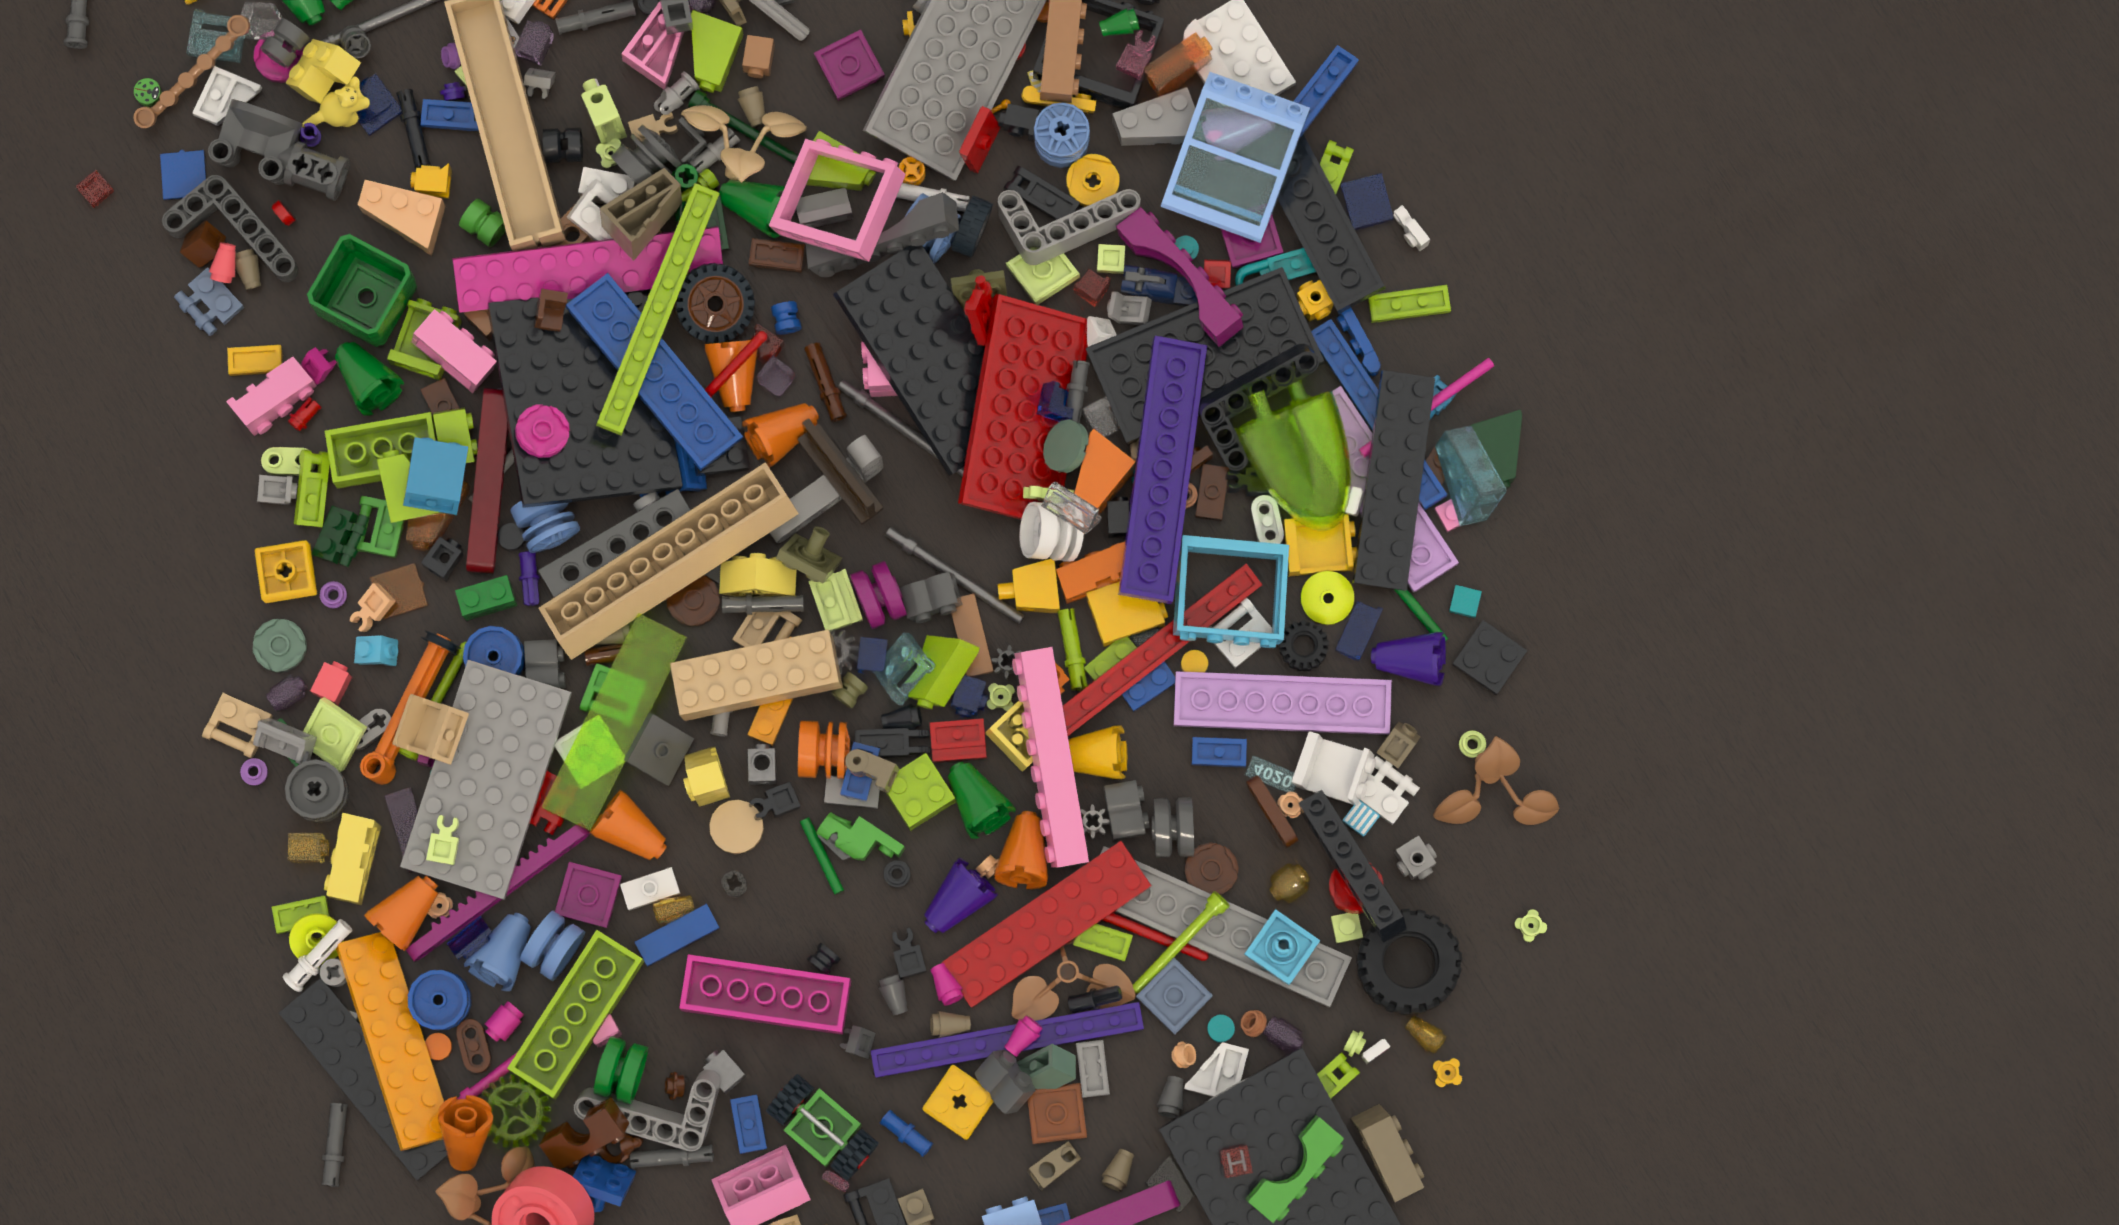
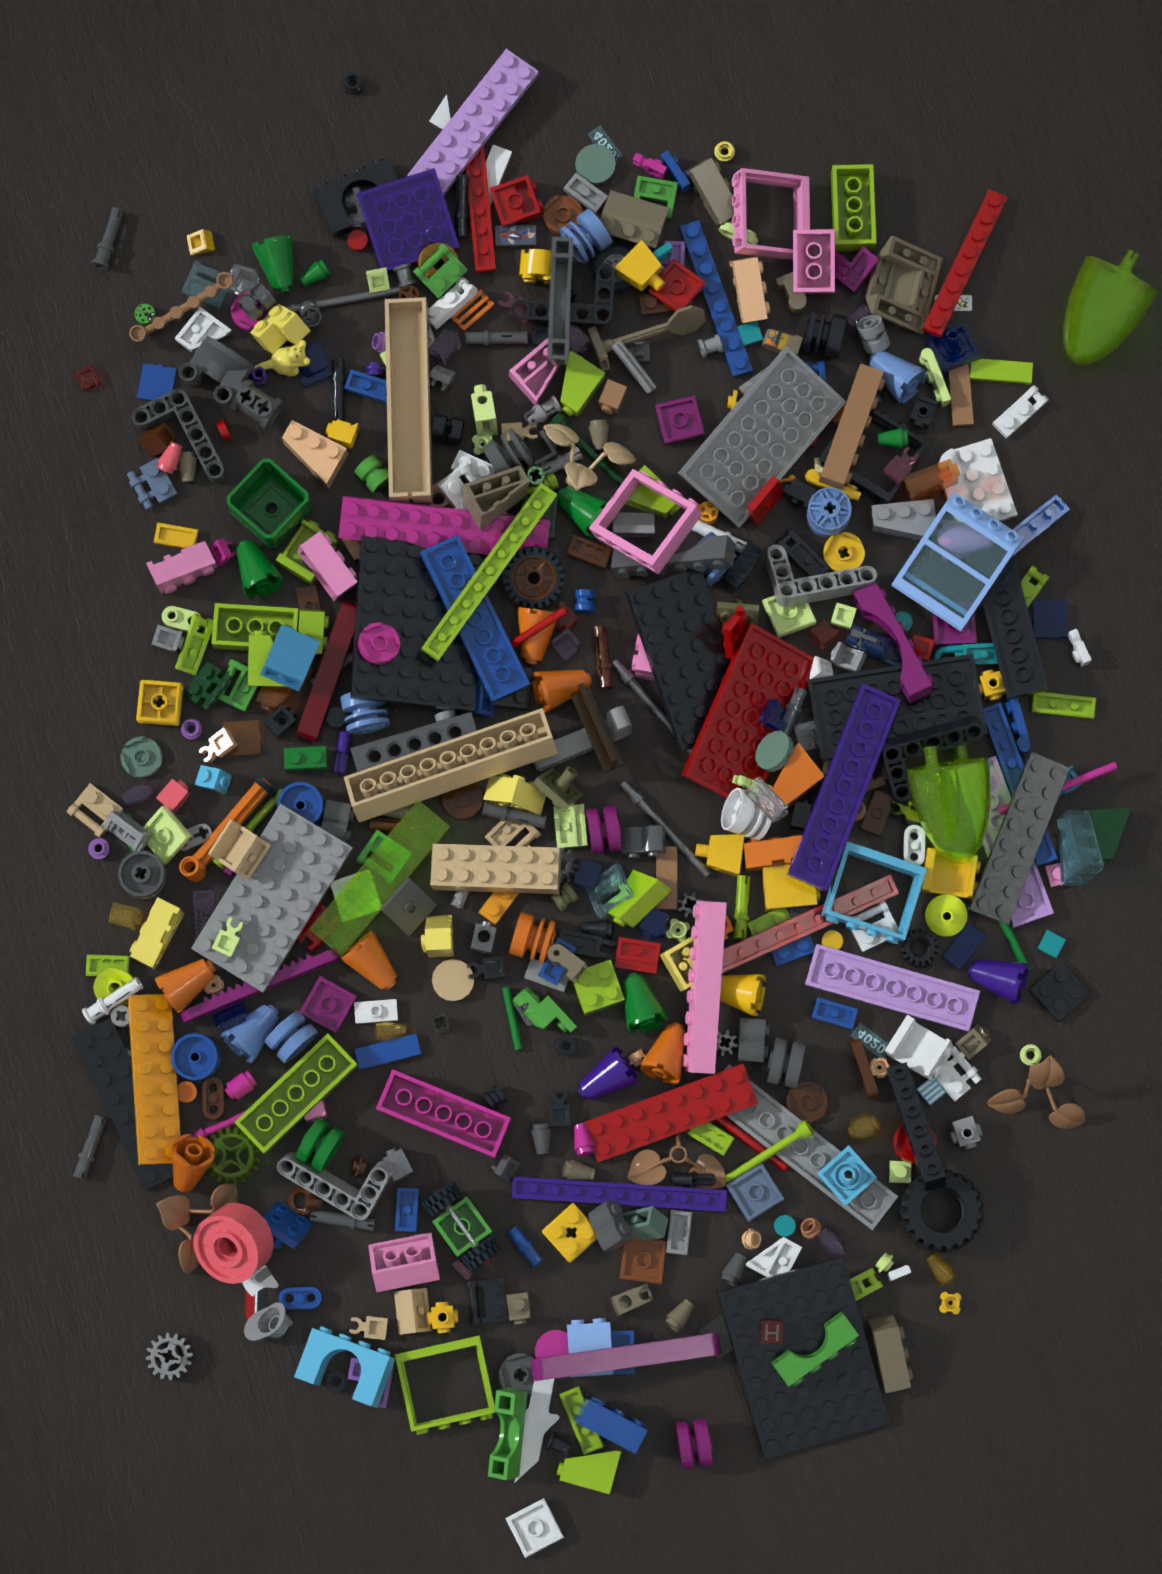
camera: 15 degrees right, 0 degrees up
(304, 414) = (203, 586): red pin -> none
(550, 310) = (407, 552): reddish brown panel -> none
(567, 1147) = (265, 1193): reddish brown arch -> none
(1023, 1035) = (633, 1193): dark pink cone -> none
(1355, 501) = (985, 847): white tile -> none
(1538, 925) = (1038, 1211): yellowish green plate -> none

